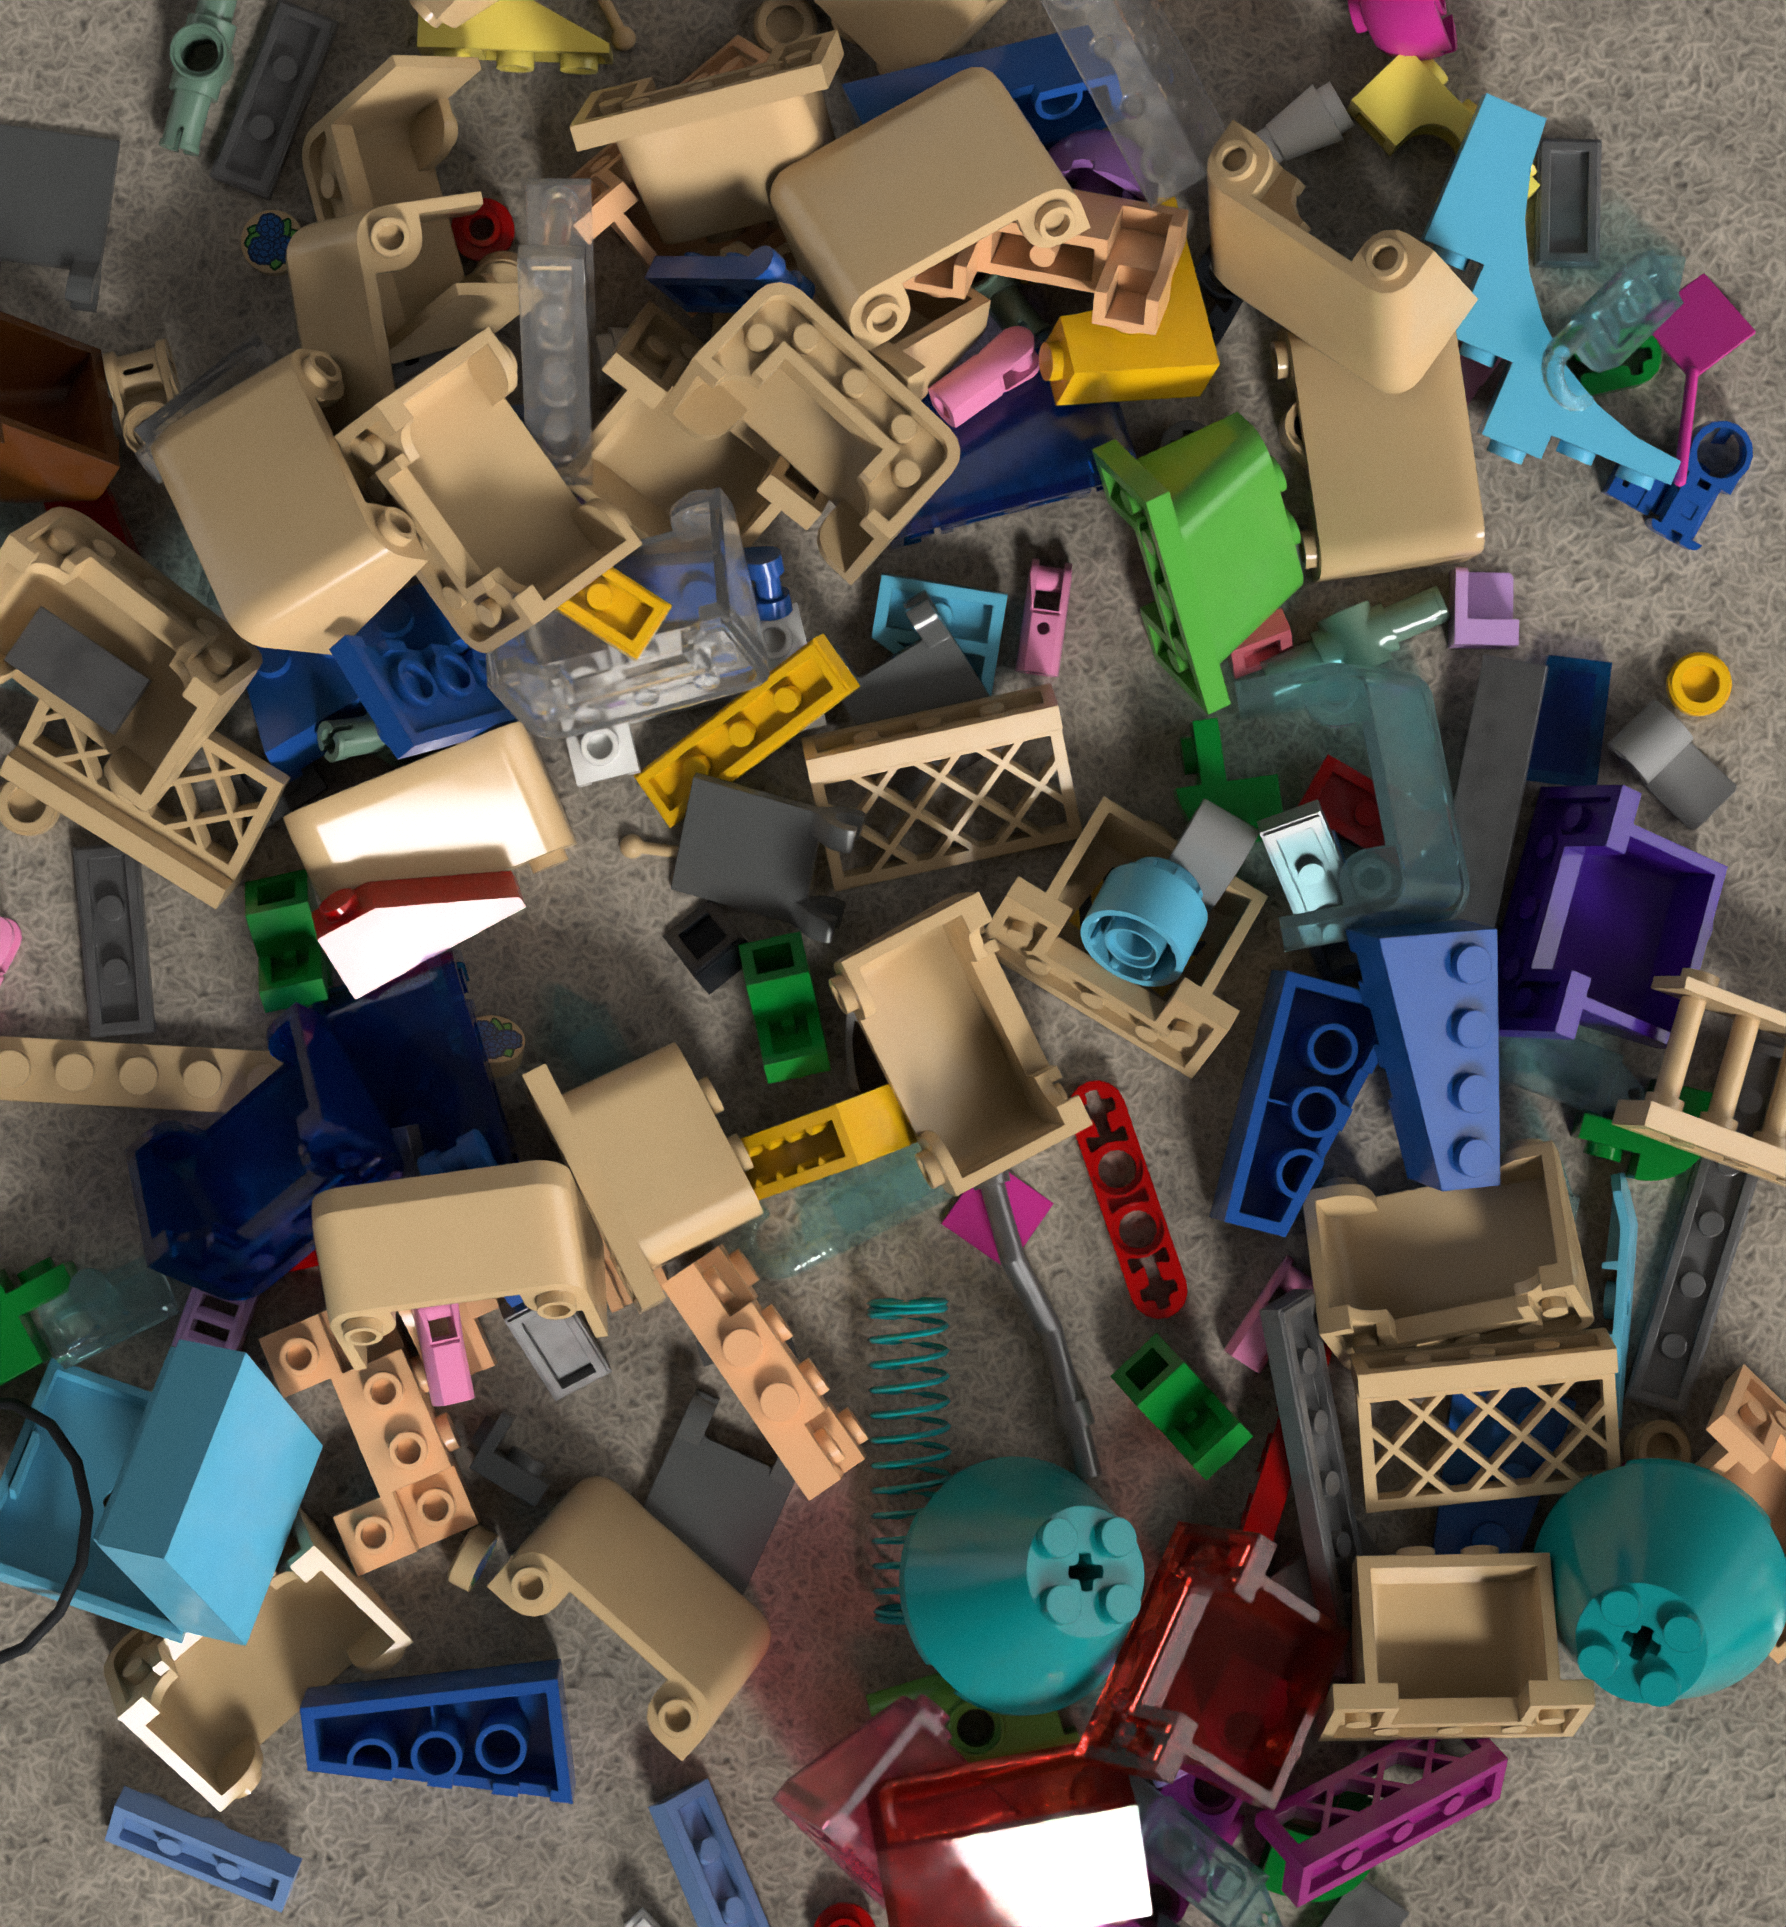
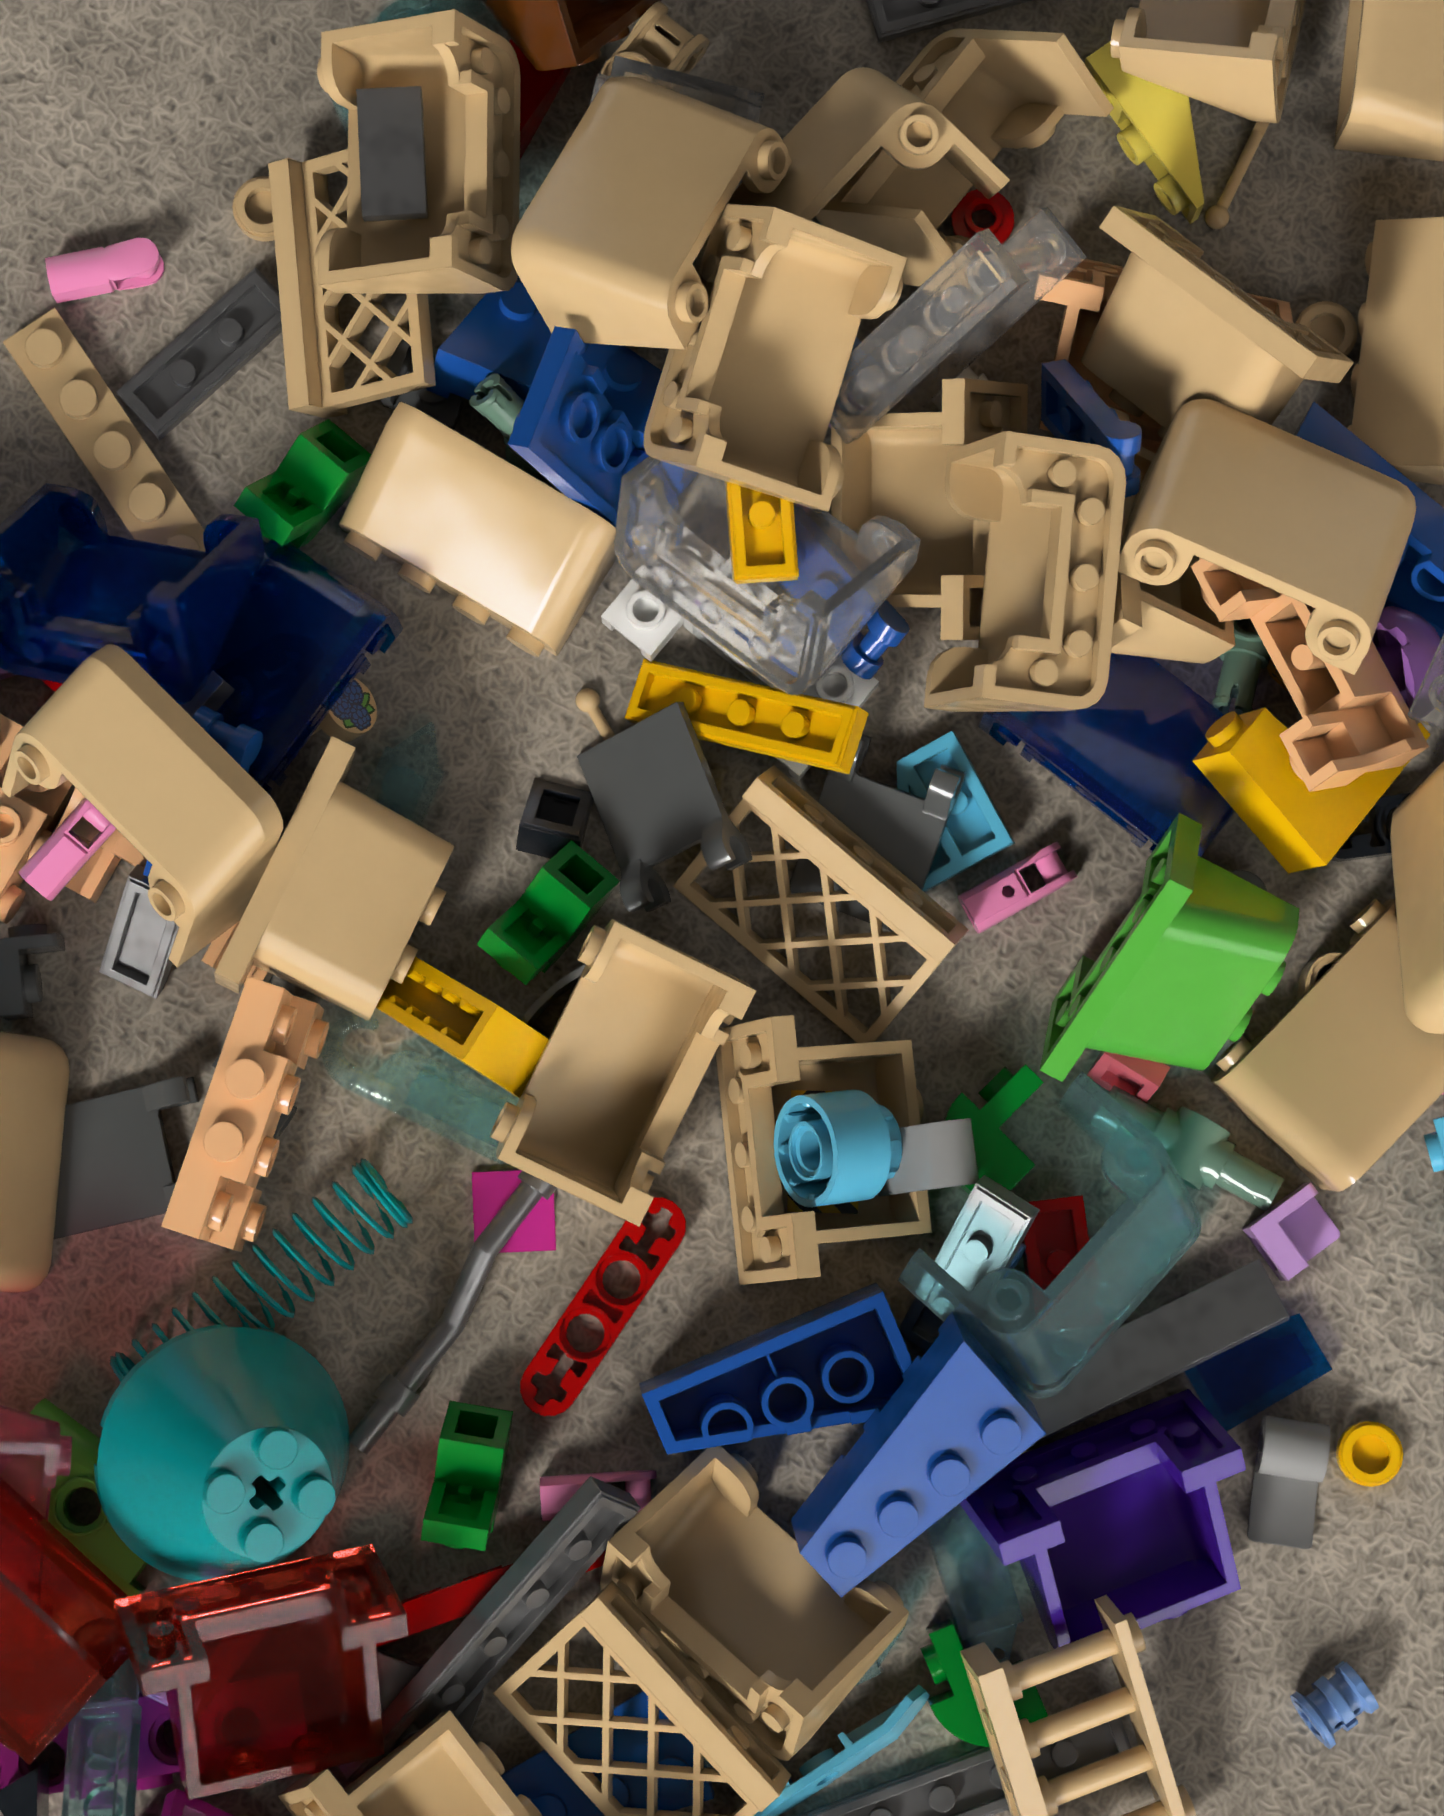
camera: 60 degrees right, 5 degrees down
(266, 241) = (842, 56): tile -> none
(403, 922) = (385, 557): slope -> none
(986, 376) = (1172, 689): bright pink bar -> none

